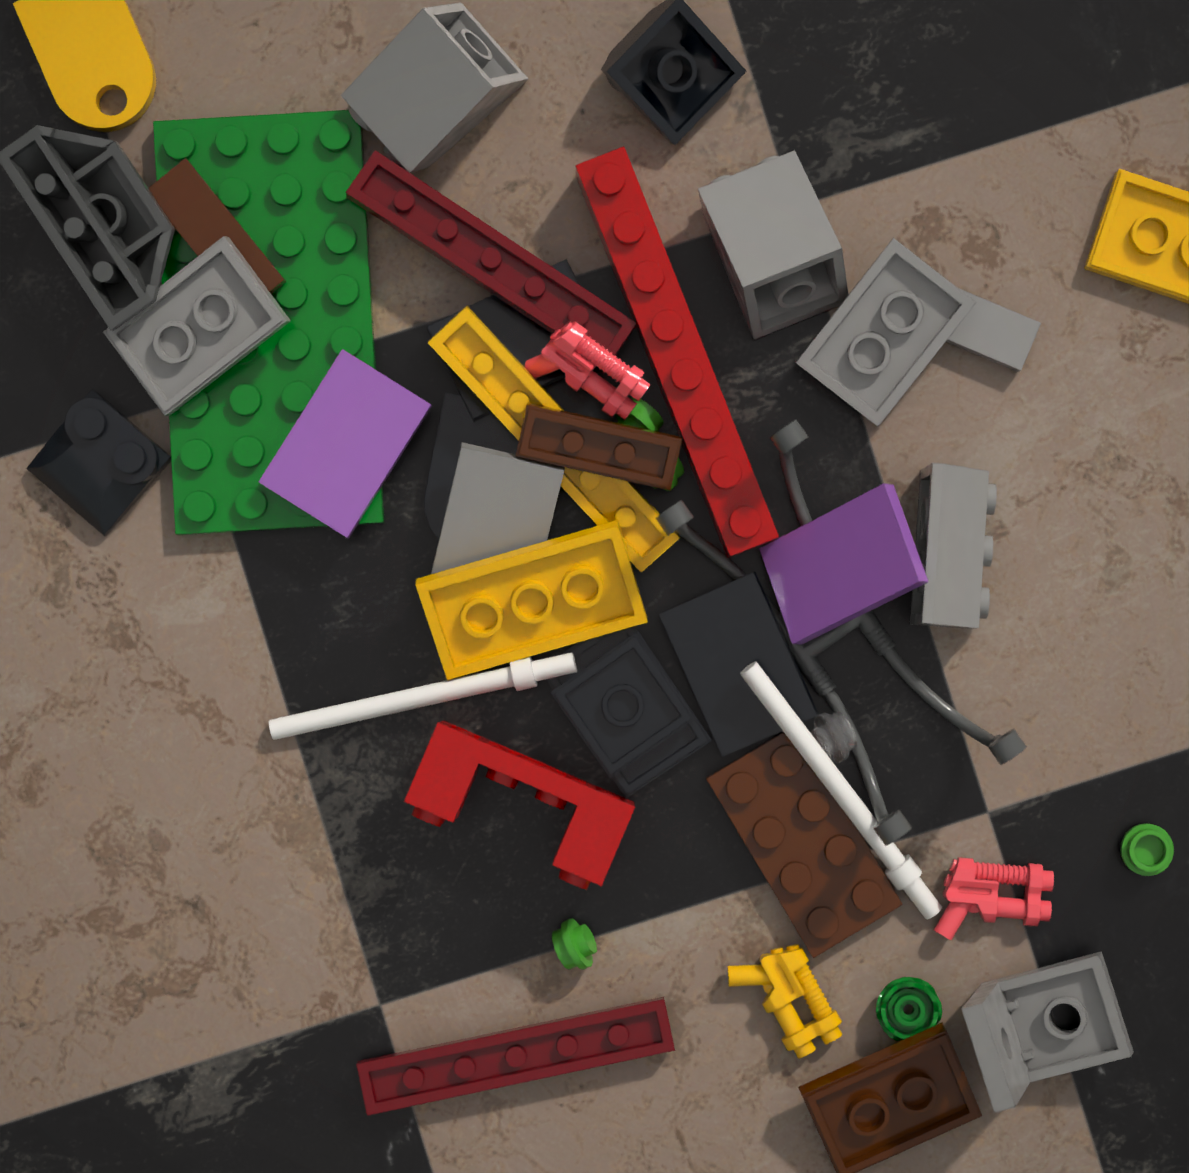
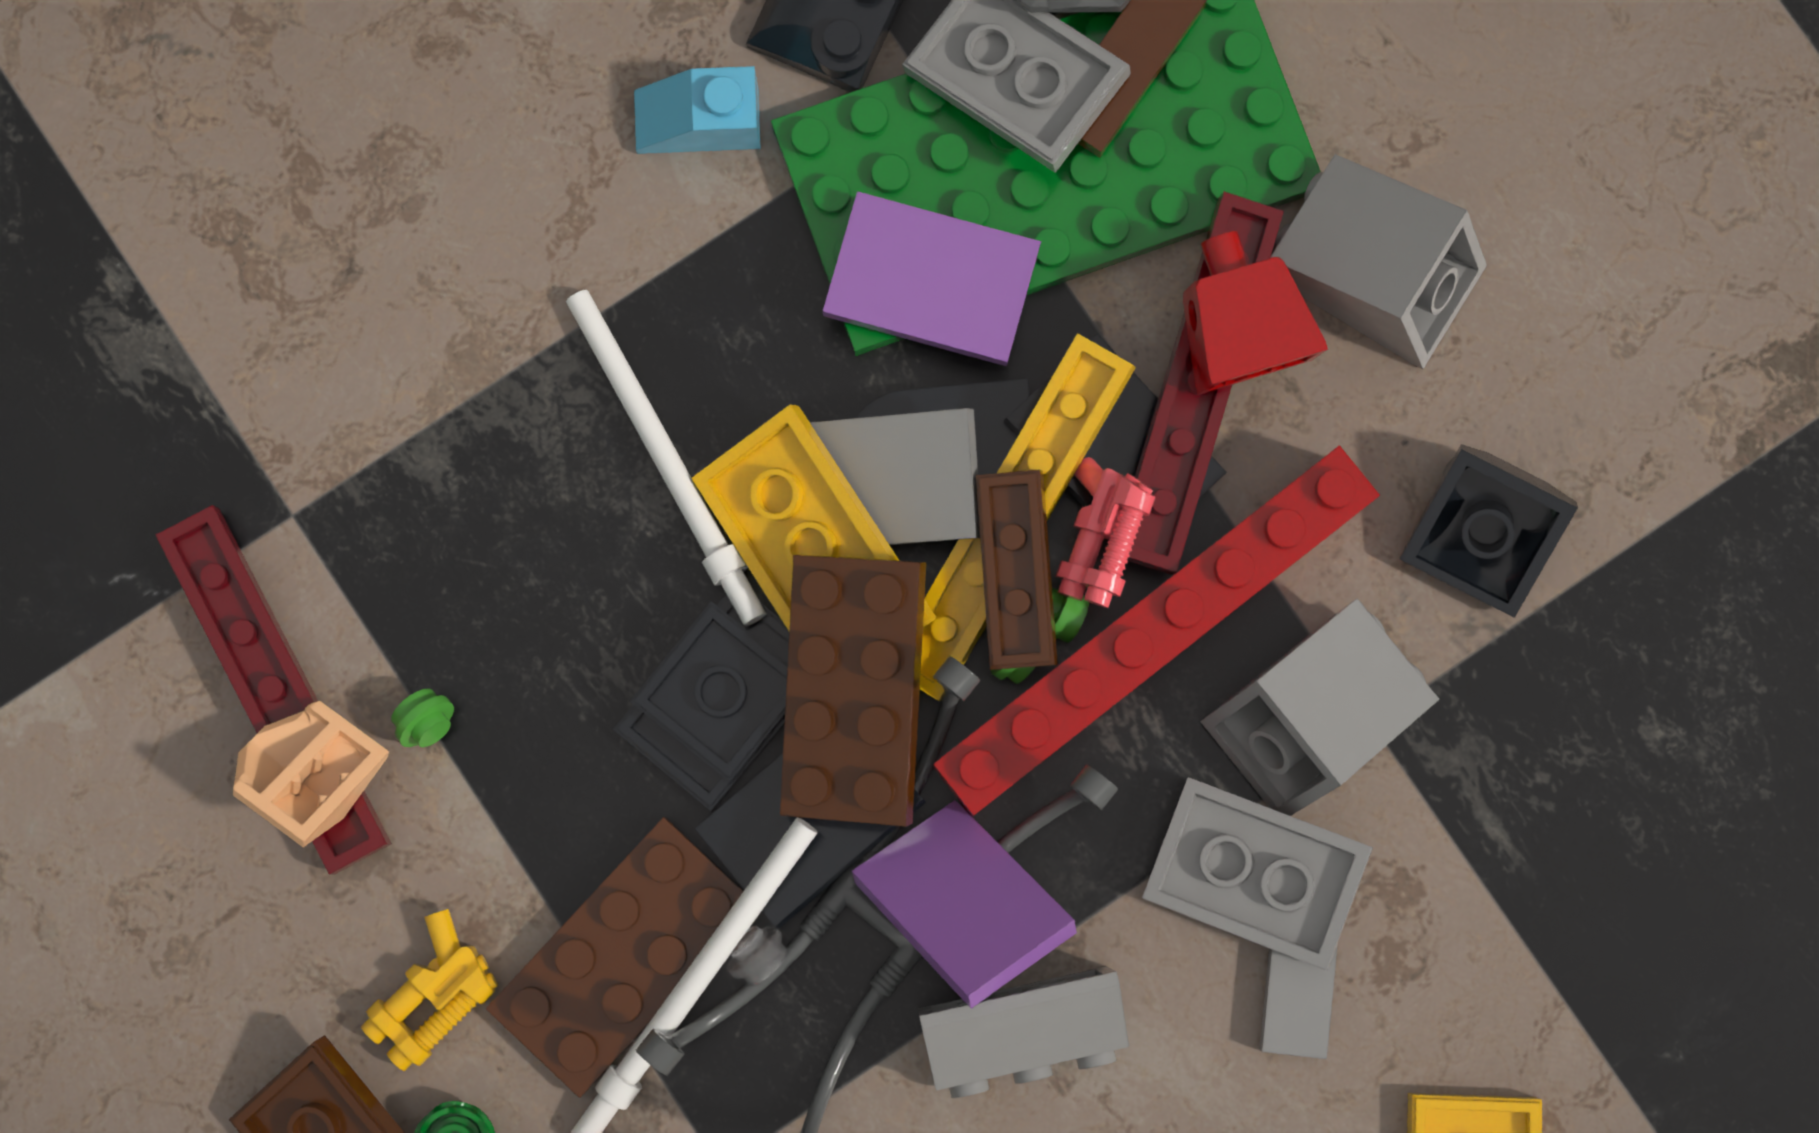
camera: 70 degrees right, 5 degrees down
(151, 590) = (699, 112): none -> medium azure slope
(451, 768) = (589, 511): red plate -> none
(454, 207) = (1246, 318): none -> red torso
(590, 1045) = (306, 771): none -> light nougat slope
(654, 601) = (853, 689): none -> reddish brown plate

